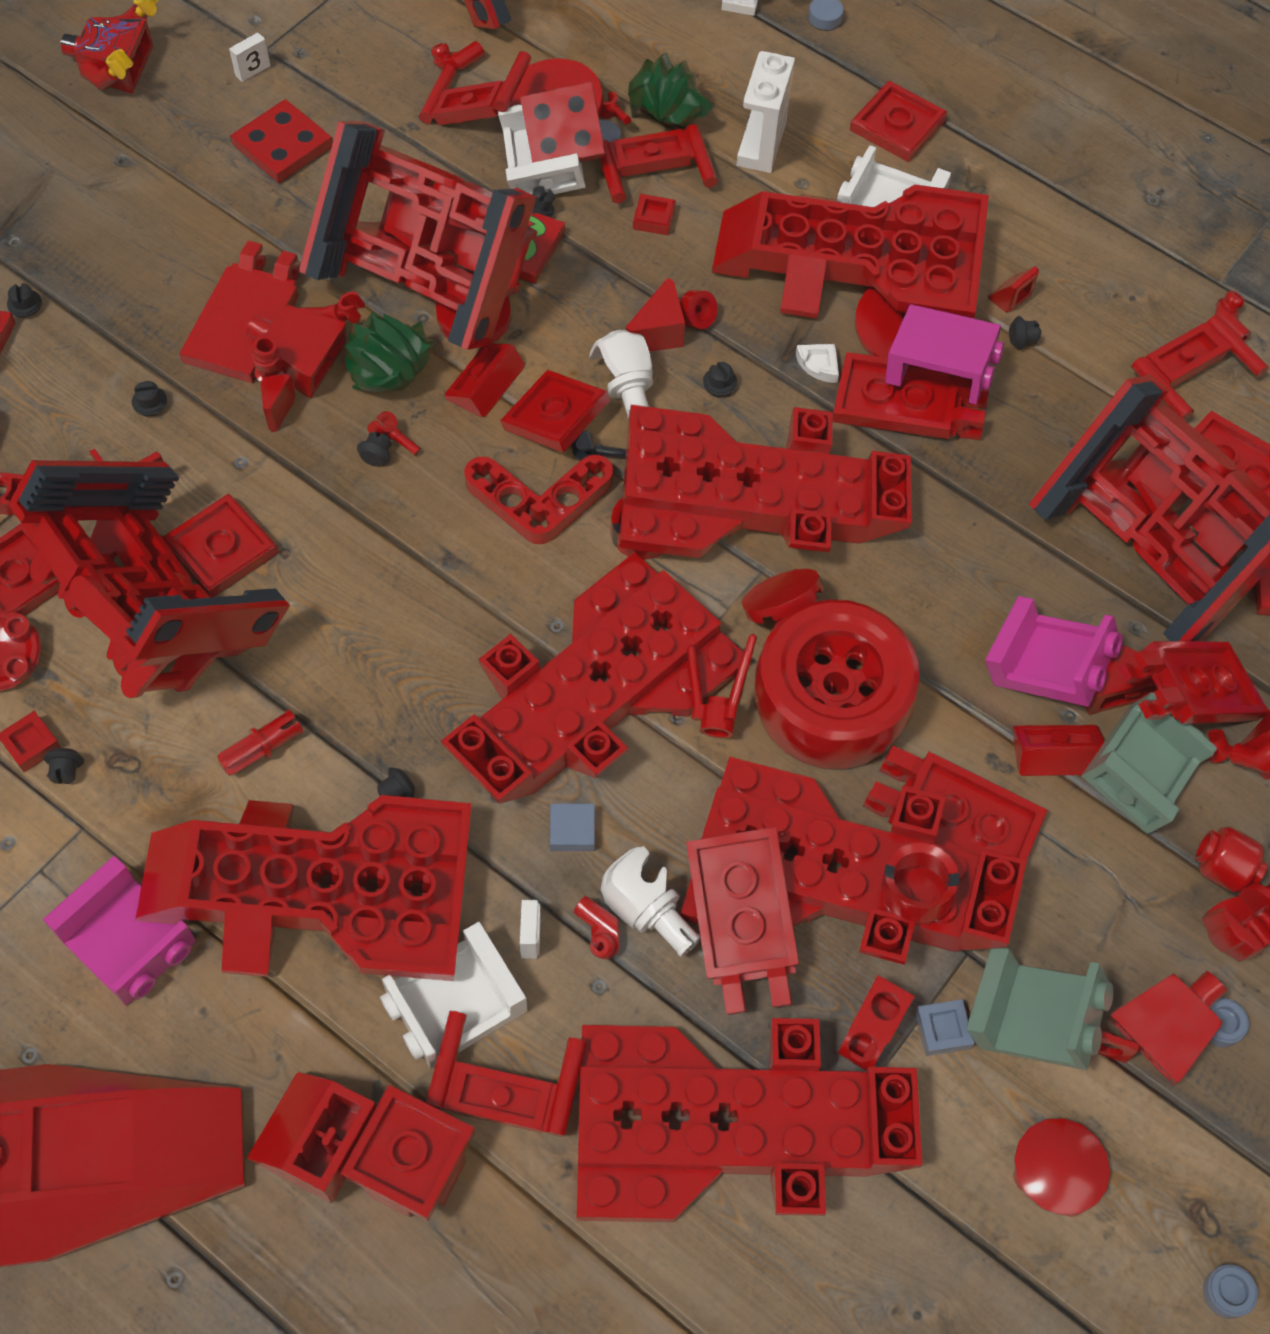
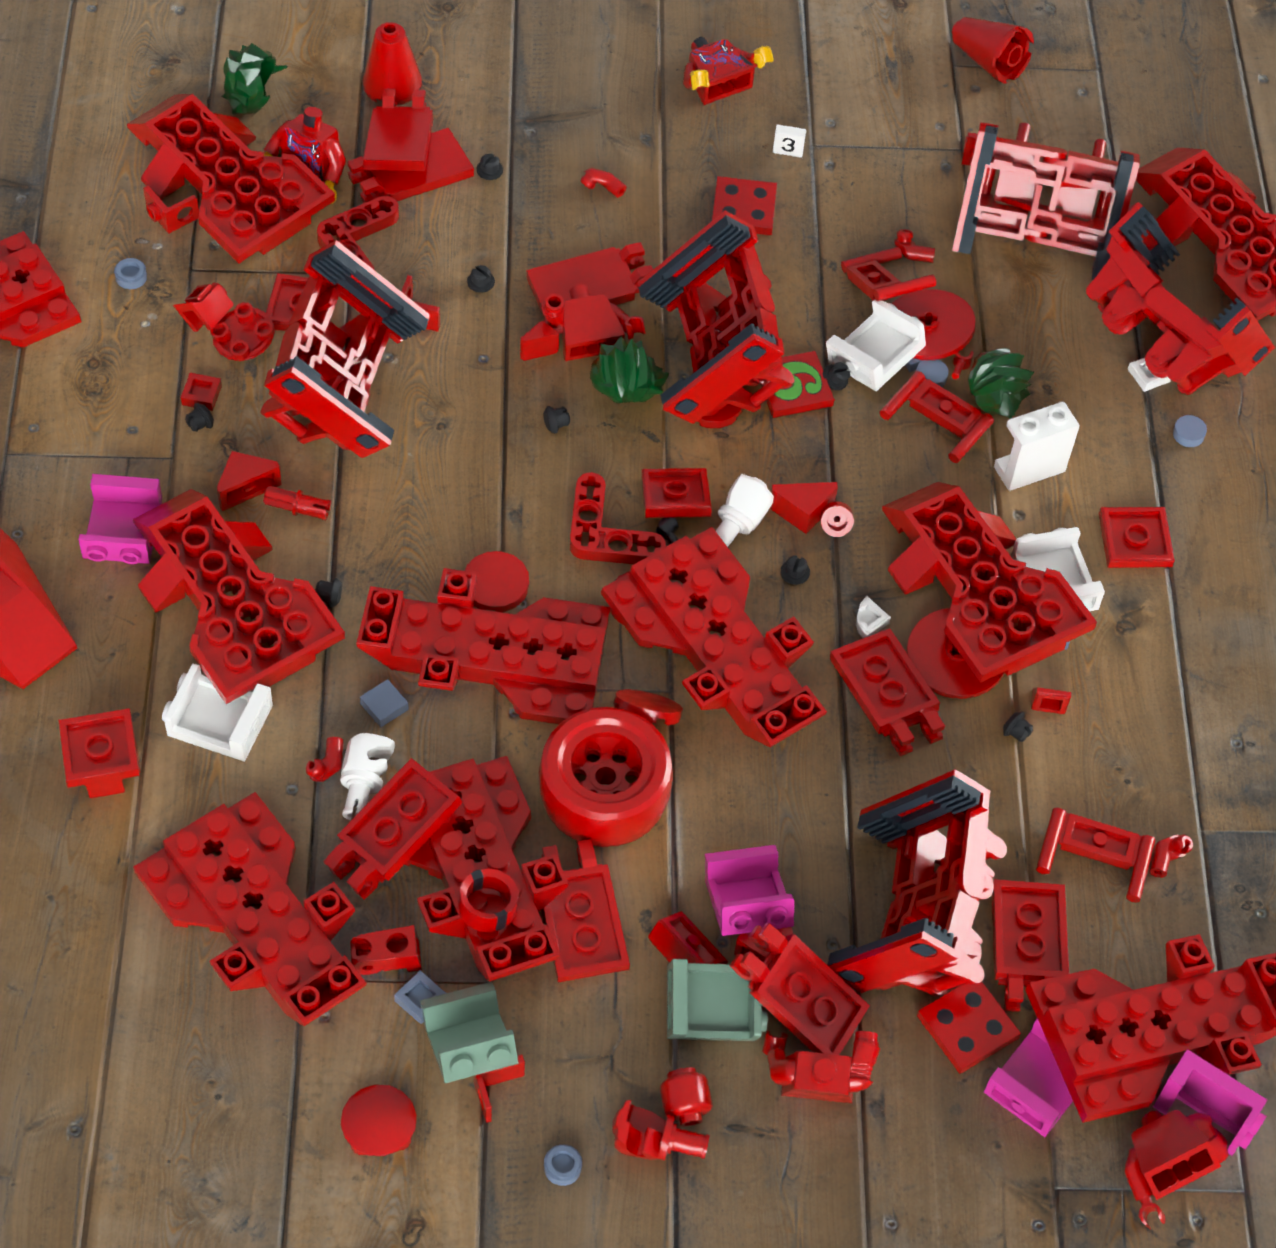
camera: 50 degrees right, 5 degrees down
(139, 220) = (606, 179): none -> red arm
(186, 769) = (246, 478): none -> red slope
(220, 545) = (413, 389): red tile -> none
(312, 1134) = (73, 696): red slope -> none
(389, 422) = (577, 420): red hand -> none
(486, 378) = (668, 441): red slope -> none
(499, 1094) = (175, 776): red plate -> none
(522, 615) = (500, 581): none -> red tile
(530, 929) = (292, 722): white tile -> none
(563, 123) = (898, 339): red tile -> none
(654, 214) = (897, 445): red tile -> none
(719, 713) = (528, 728): red plant -> none
(946, 345) = (935, 678): dark pink panel -> none
(1172, 1022) = (526, 1124): red torso -> none

